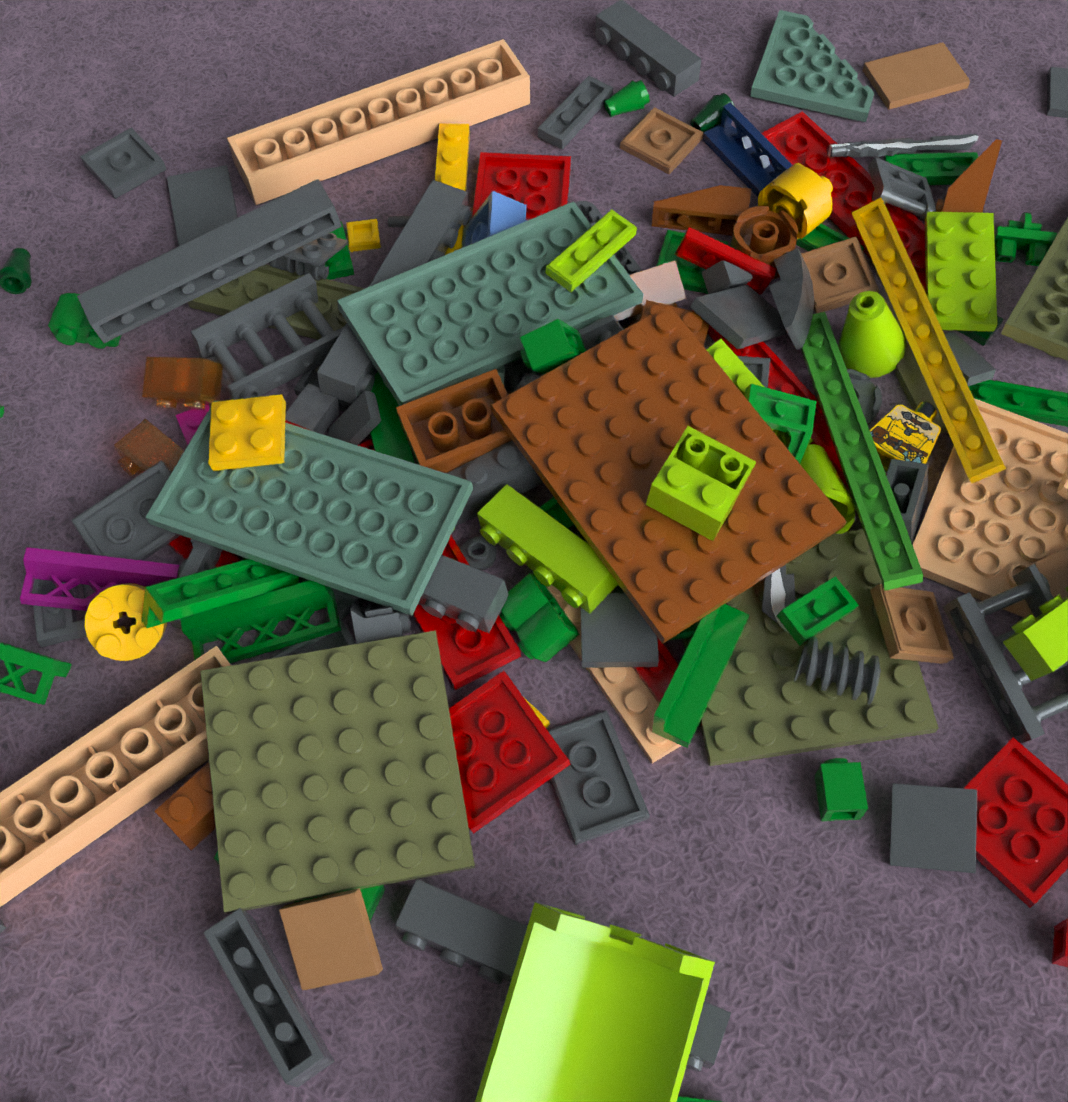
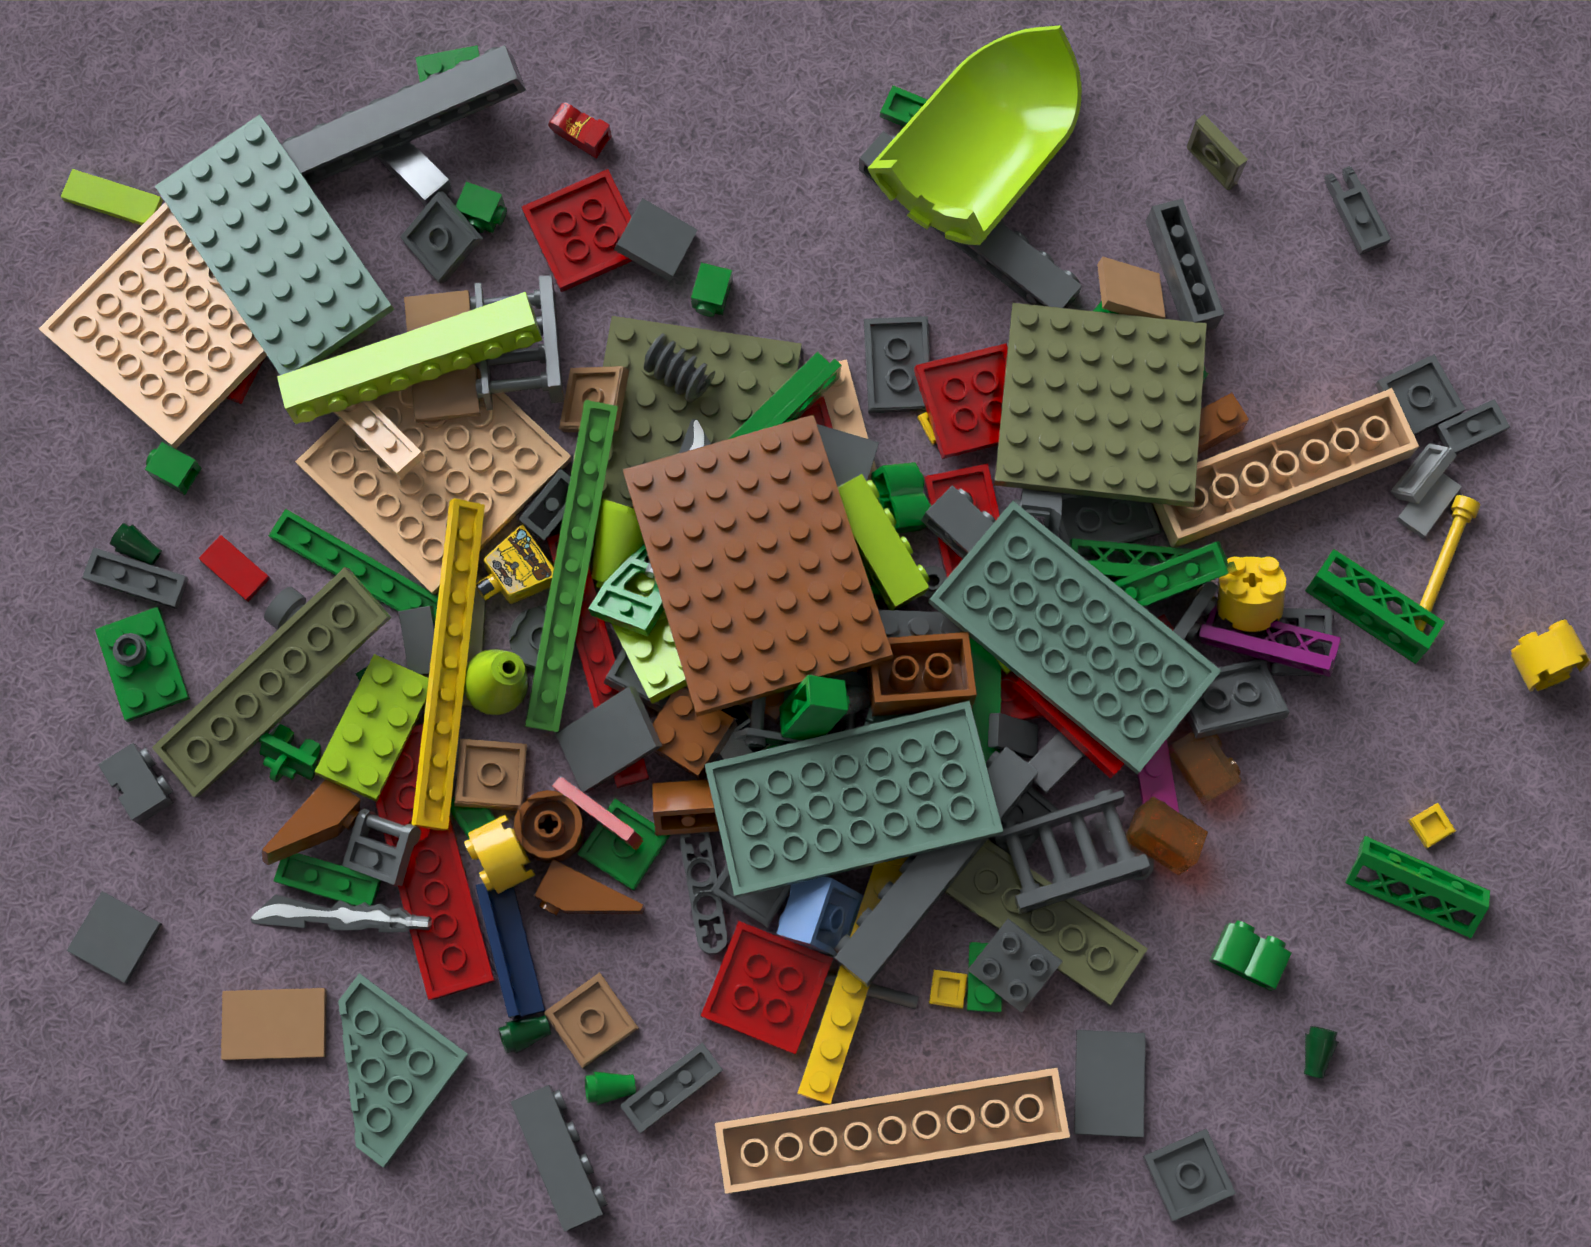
camera: 165 degrees left, 15 degrees up
(209, 261) = (1115, 947): dark grey brick -> none
(247, 432) = (1115, 718): yellow plate -> none
(591, 250) = (738, 823): lime tile -> none
(700, 483) = (743, 510): lime slope -> none
(724, 276) = (605, 792): dark grey slope -> none
(794, 296) = (551, 742): flat silver slope -> none
(817, 610) = (670, 423): green plate -> none

